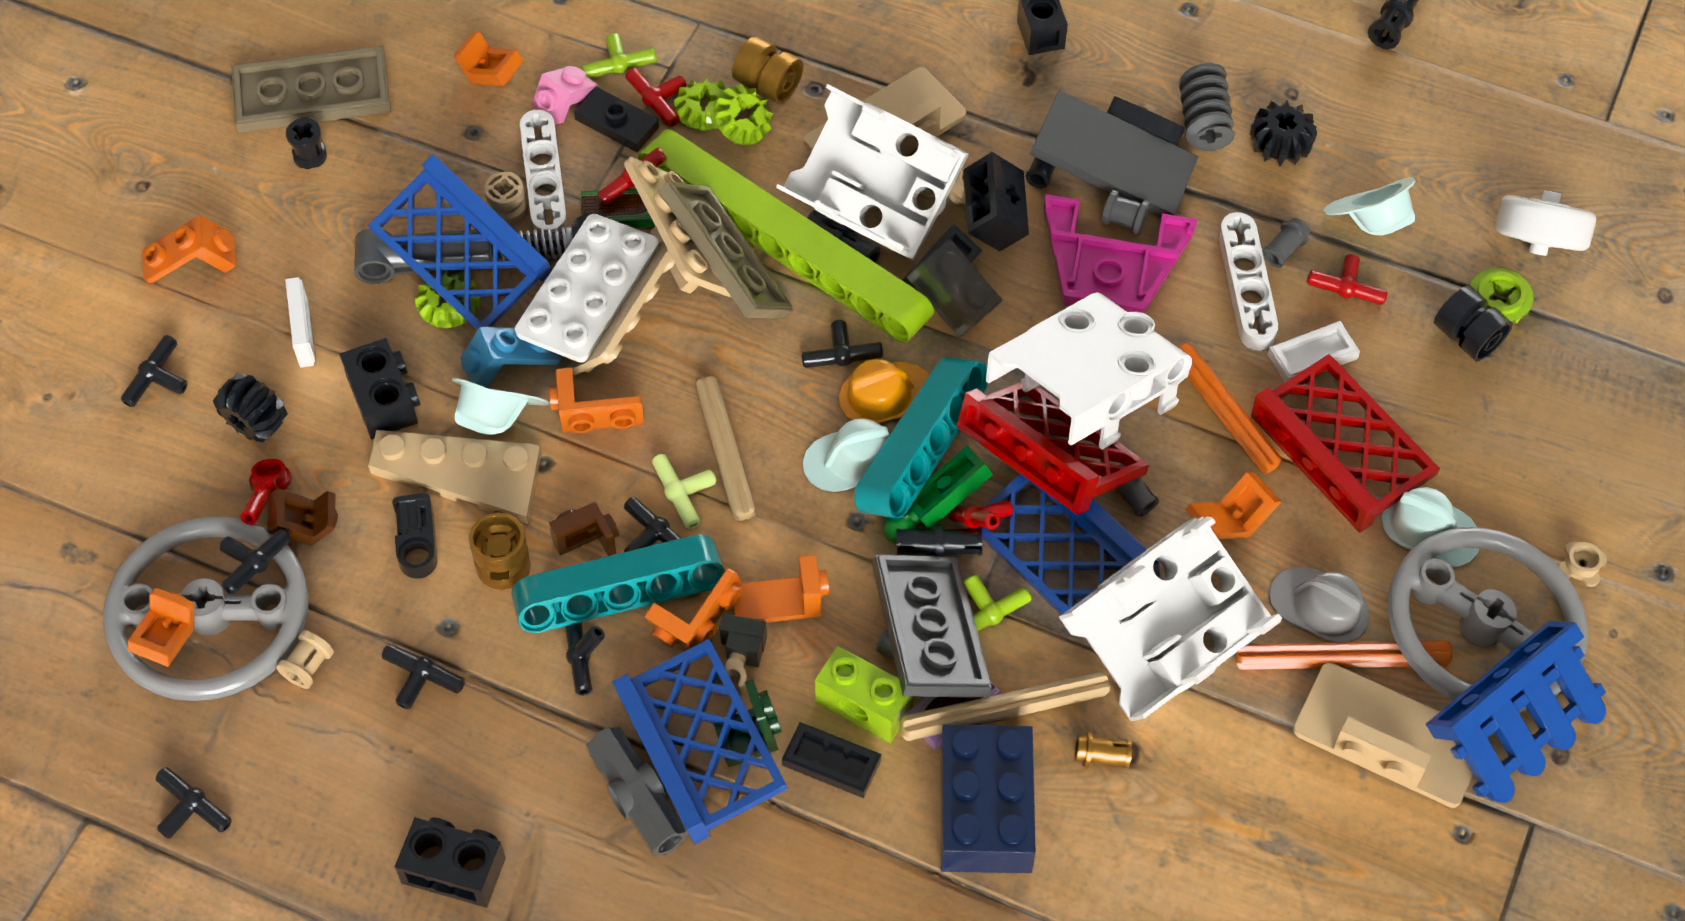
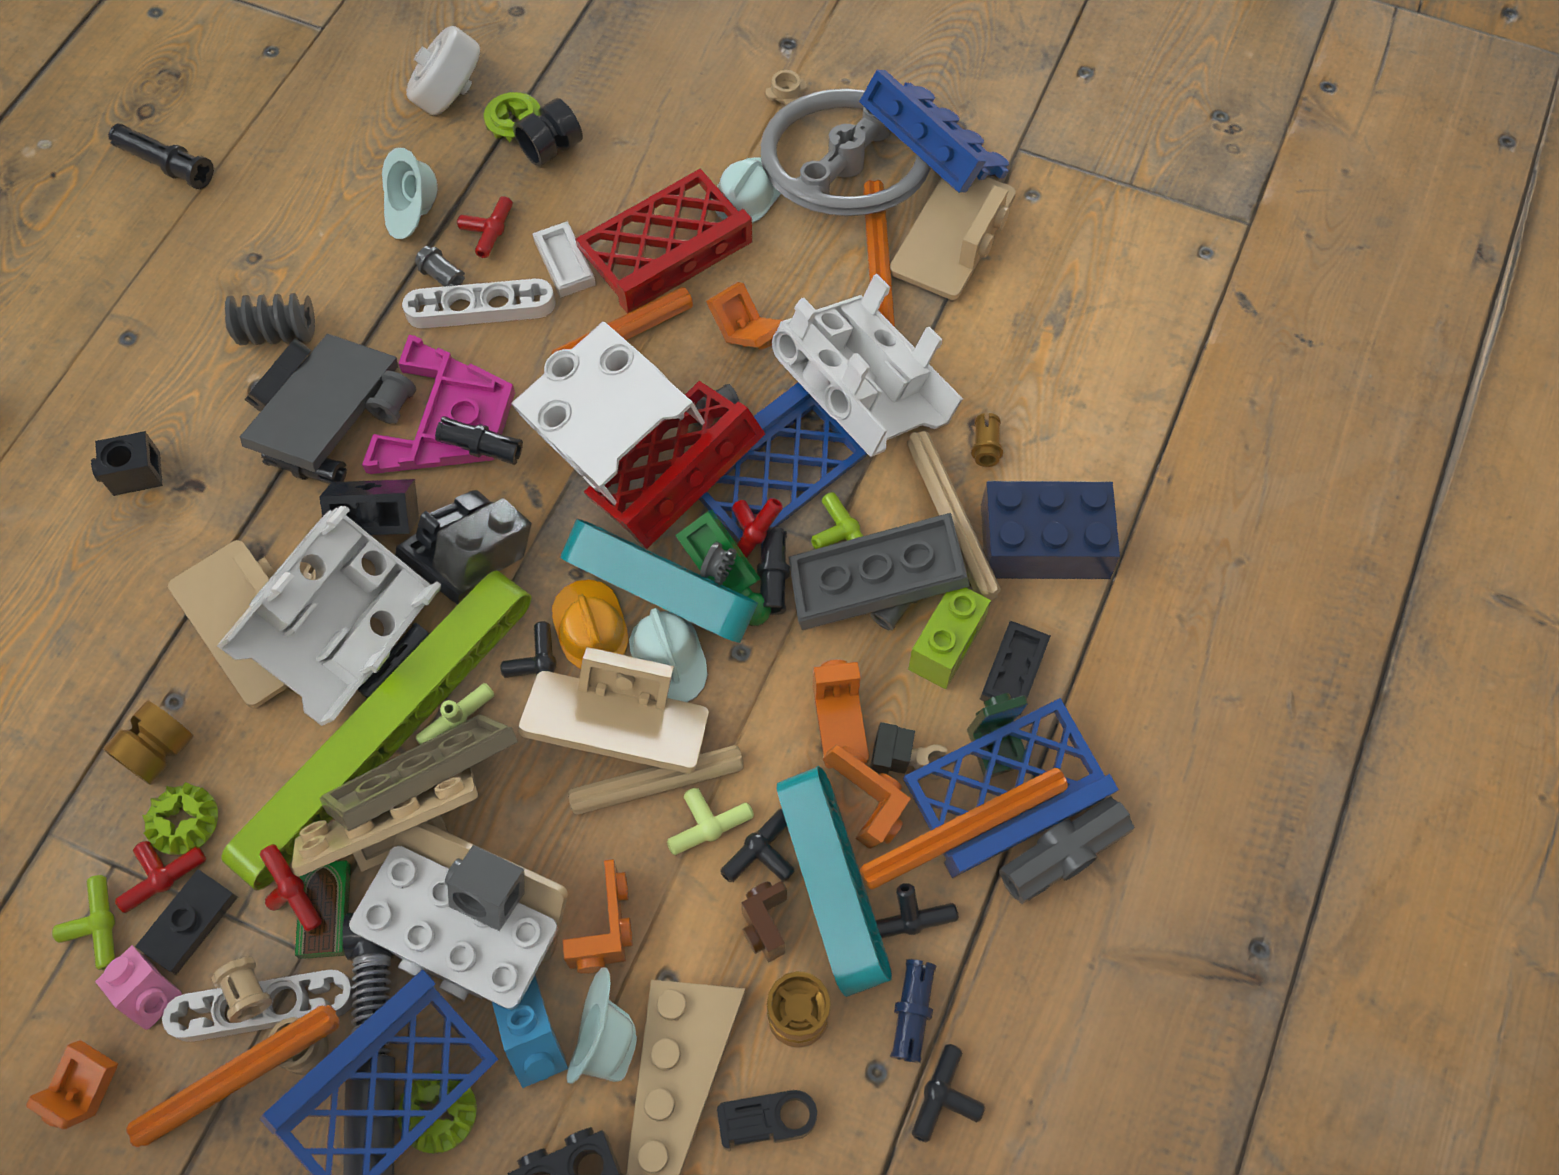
camera: 90 degrees left, 5 degrees up
(445, 871) = (1178, 1039): black brick -> none
(481, 154) = (233, 1075): none -> orange axle
(495, 650) = (913, 1011): none -> dark blue pin
(548, 151) = (241, 989): none -> tan bush
(607, 293) = (484, 887): none -> dark grey brick
(655, 689) = (963, 828): none -> orange axle
(744, 130) = (204, 783): lime gear -> none
(779, 405) = (616, 712): none -> tan bracket
(793, 288) = (456, 713): none -> yellowish green piece
(931, 476) = (717, 563): none -> dark grey bush
(987, 265) = (433, 522): none -> black piece
(1069, 276) = (478, 440): none -> black pin
(1283, 132) = (309, 260): black gear -> none
(1320, 603) = (826, 270): light grey piece -> none

